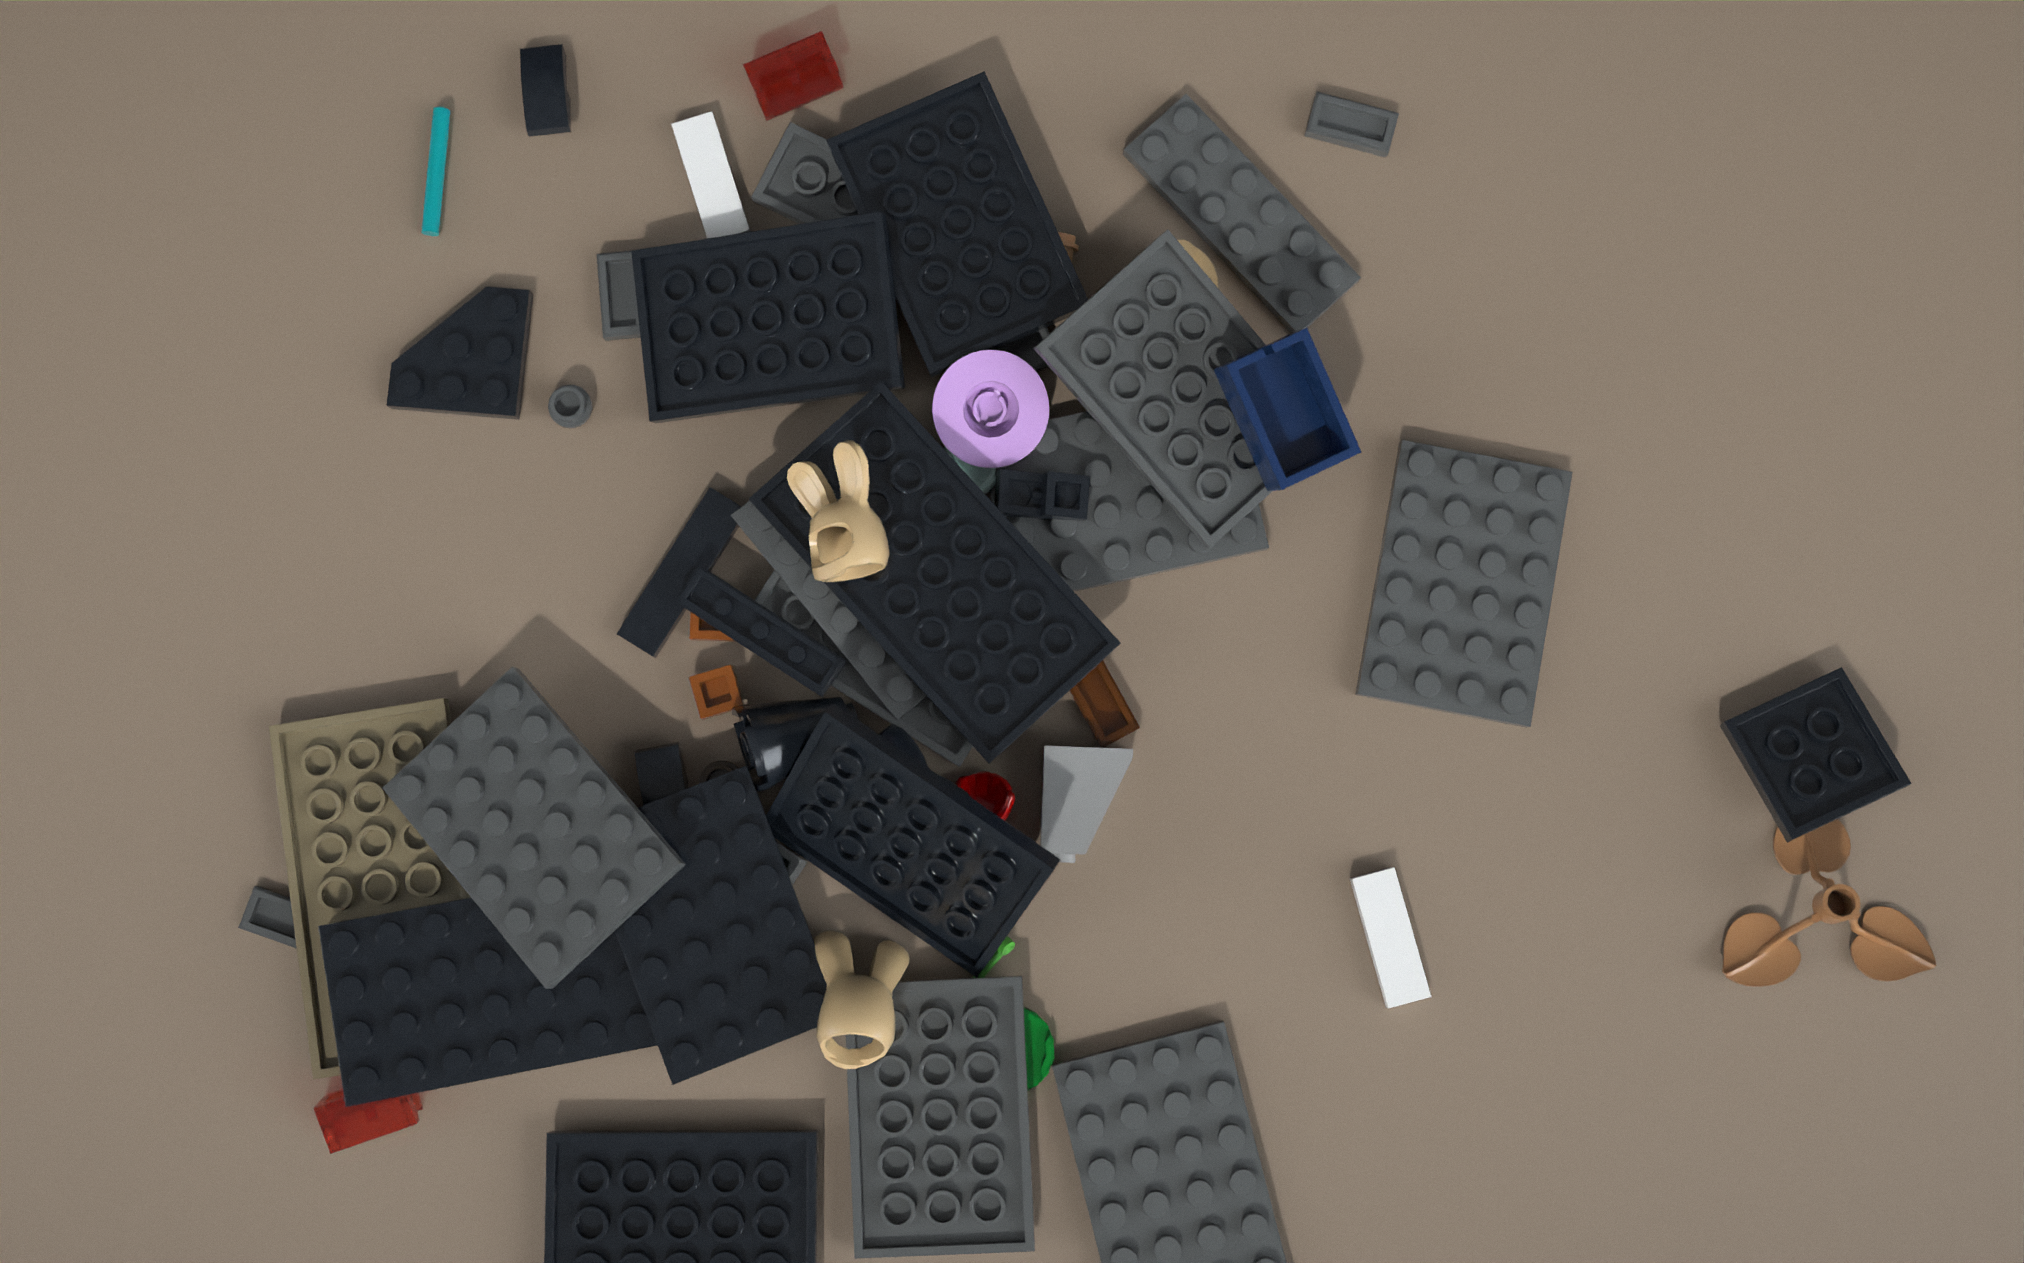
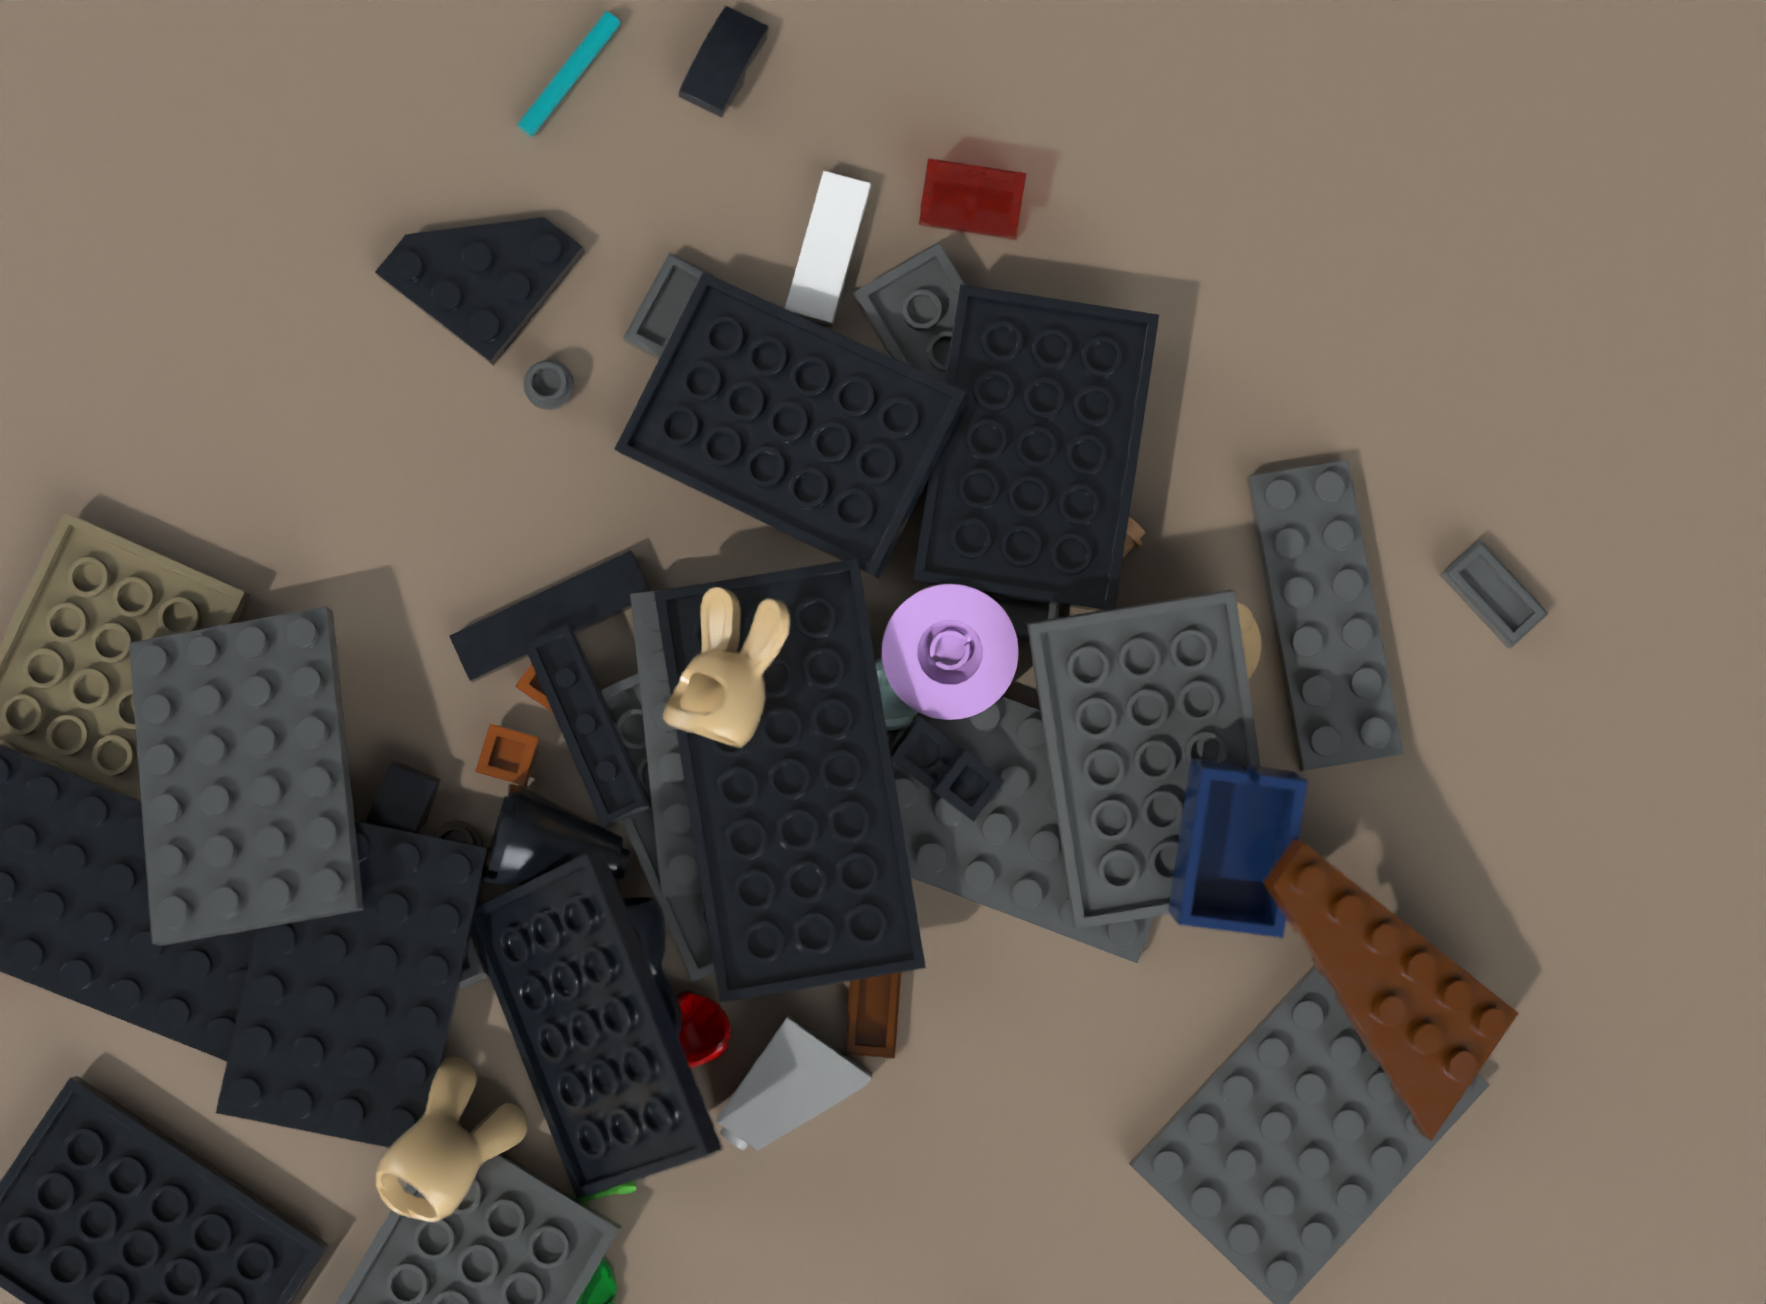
camera: 35 degrees right, 0 degrees up
(1468, 440) = (1402, 994): none -> reddish brown wing

